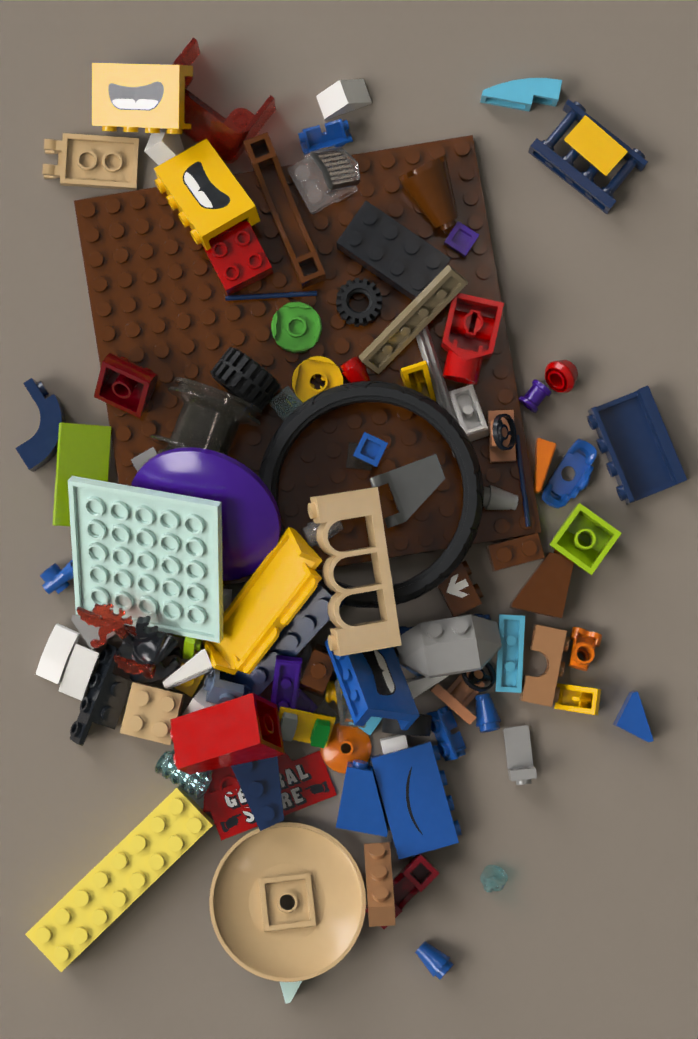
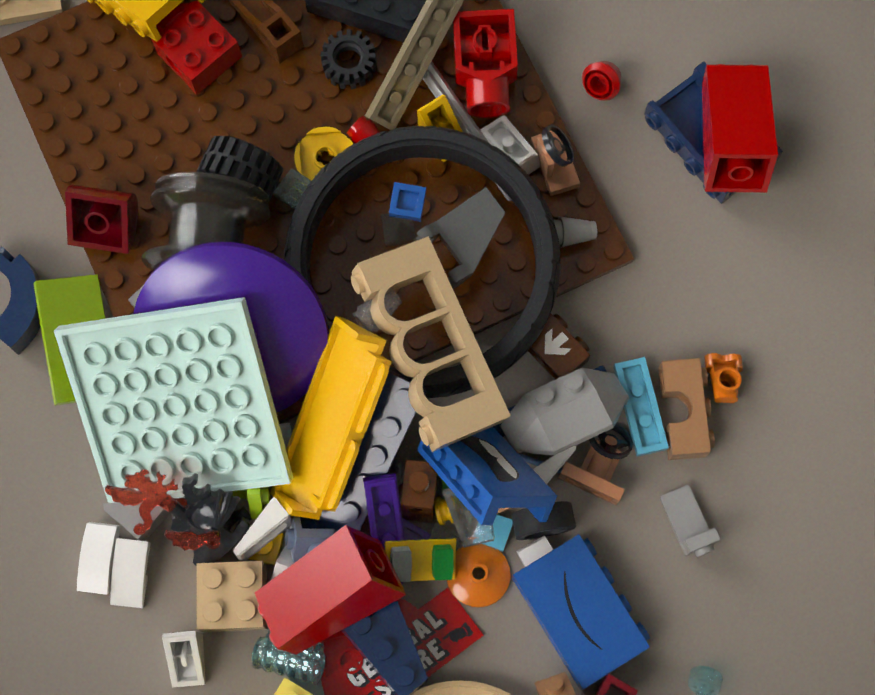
camera: 15 degrees left, 10 degrees down
(56, 578) = (74, 467): blue plate -> none
(104, 699) = (168, 599): black bracket -> none
(105, 749) = (185, 658): none -> white slope
(270, 295) = (246, 81): dark blue axle -> none
(296, 327) = (284, 107): bright green tile -> none
(361, 801) = (515, 632): blue slope -> none
(449, 745) = (602, 534): blue hinge -> none
(486, 714) = (638, 489): blue cone -> none
(515, 552) = (611, 287): reddish brown brick -> none
(522, 481) = (595, 207): dark blue axle -> none
(535, 396) = (579, 110): dark purple bush -> none
(543, 456) = (609, 173): orange slope -> none
(546, 587) = (661, 317): reddish brown slope -> none
(578, 699) = (740, 436): yellow slope -> none
(580, 458) = (653, 166): blue piece -> none
(585, 538) = (688, 246): lime slope -> none
(633, 718) = (810, 441): blue slope -> none
(655, 453) = (738, 128): none -> red slope

